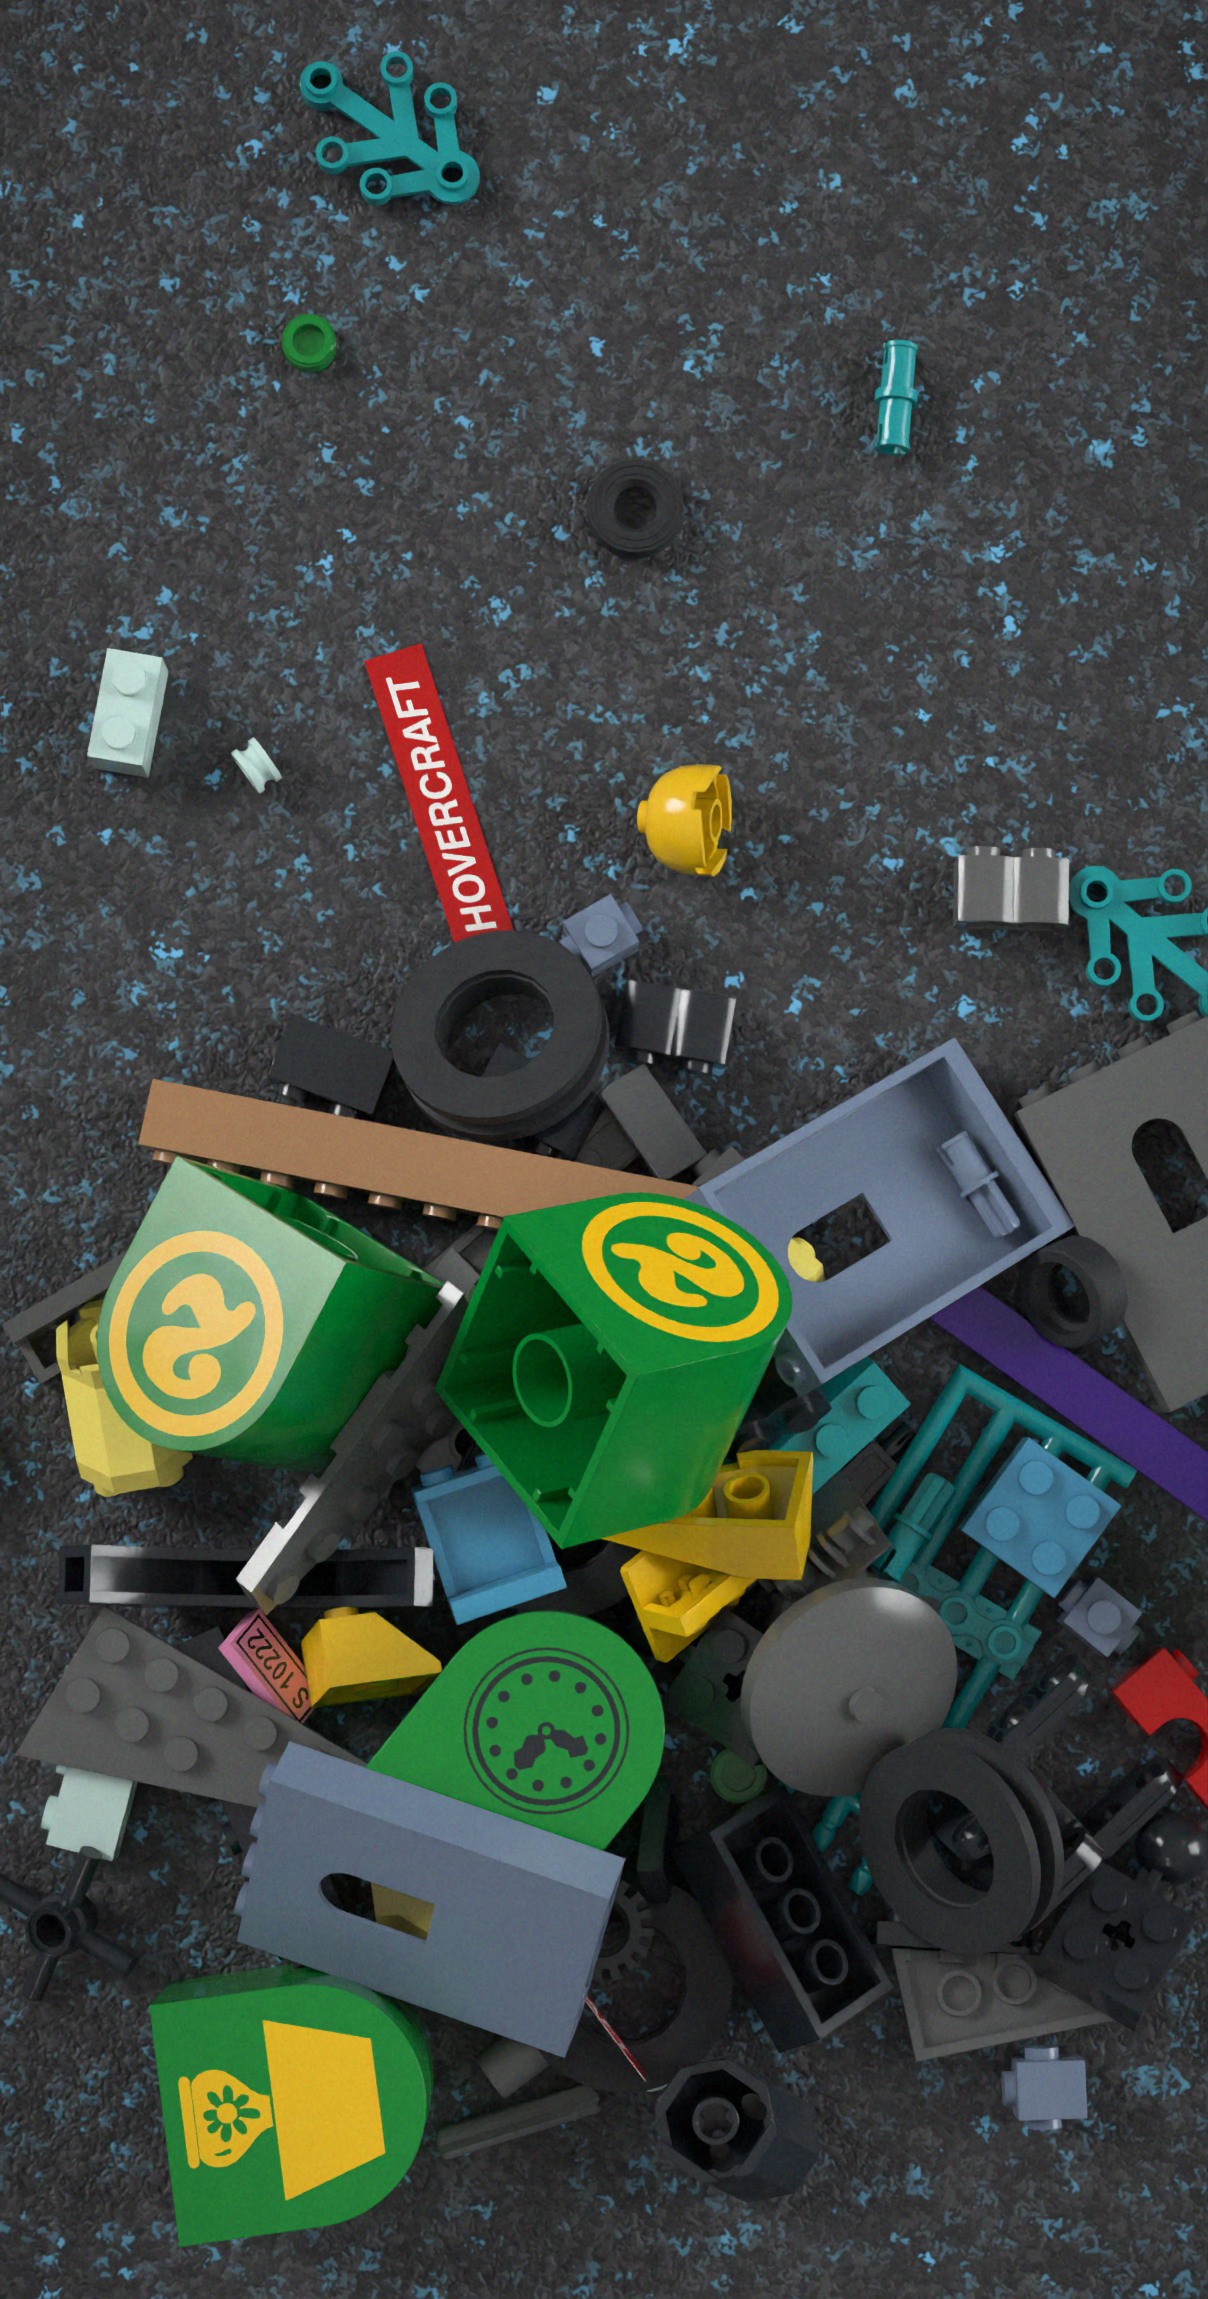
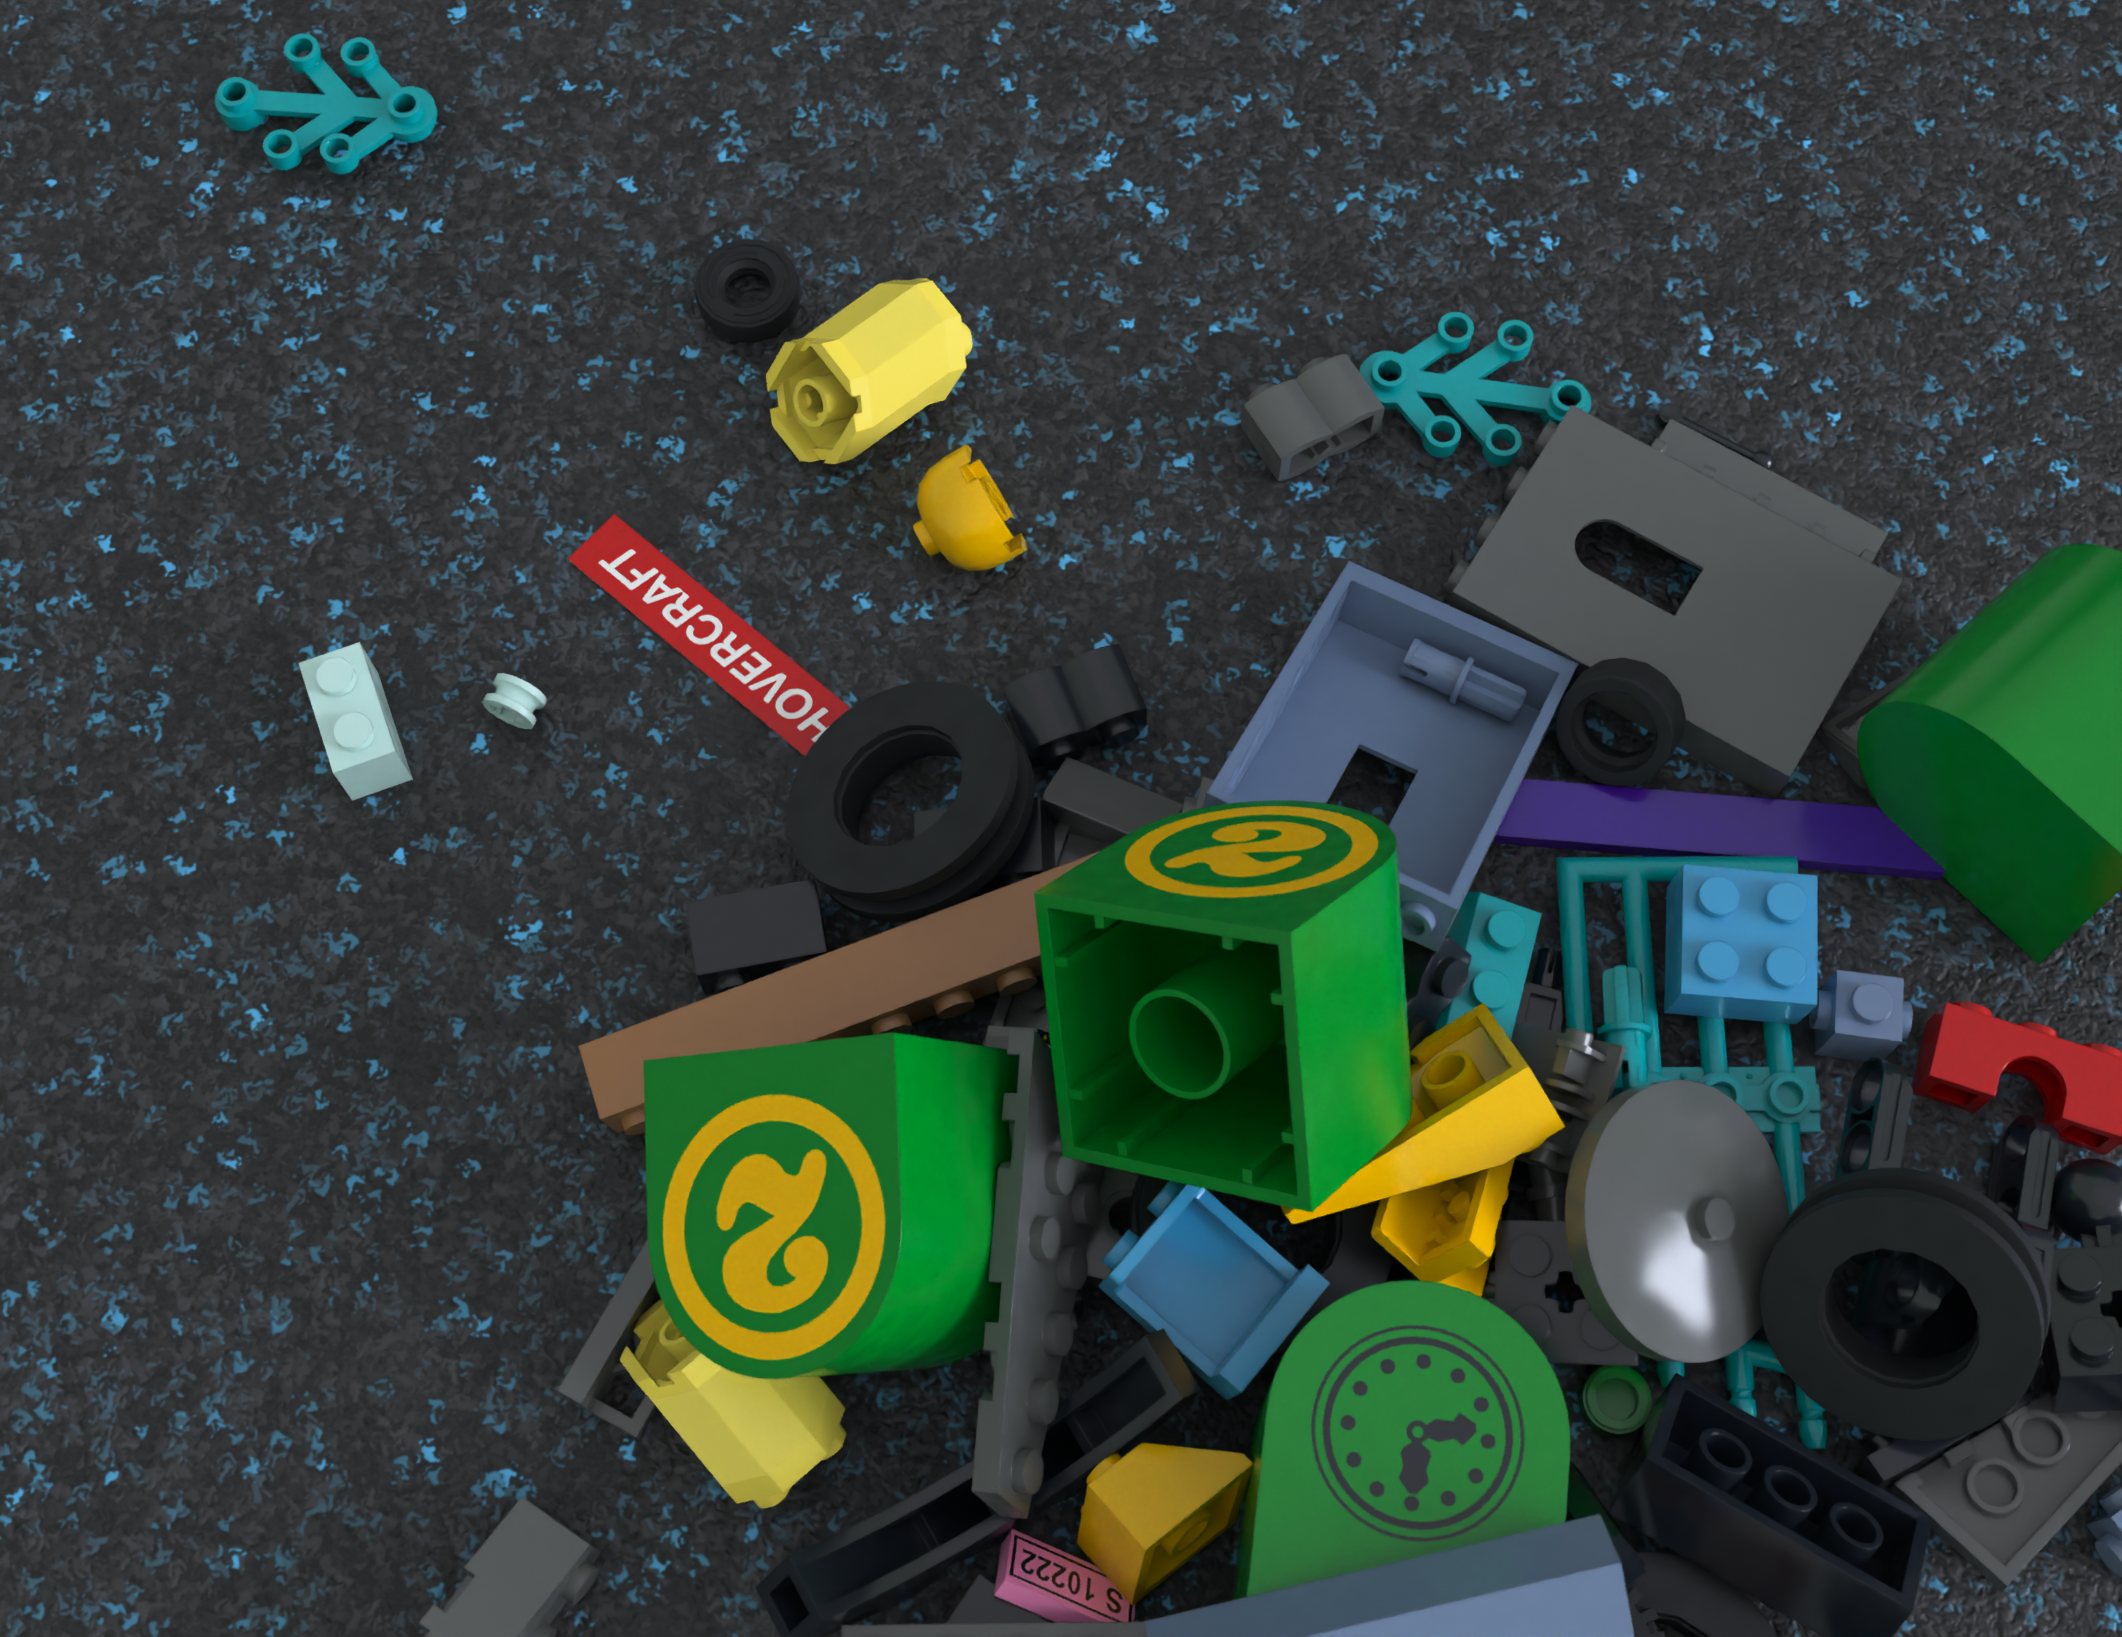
camera: 25 degrees left, 15 degrees down
(309, 343) = (352, 316): green tile -> none
(602, 934) = (952, 653): sand blue brick -> none
(682, 649) = (867, 370): none -> light yellow brick
(896, 397) = (929, 77): teal pin -> none

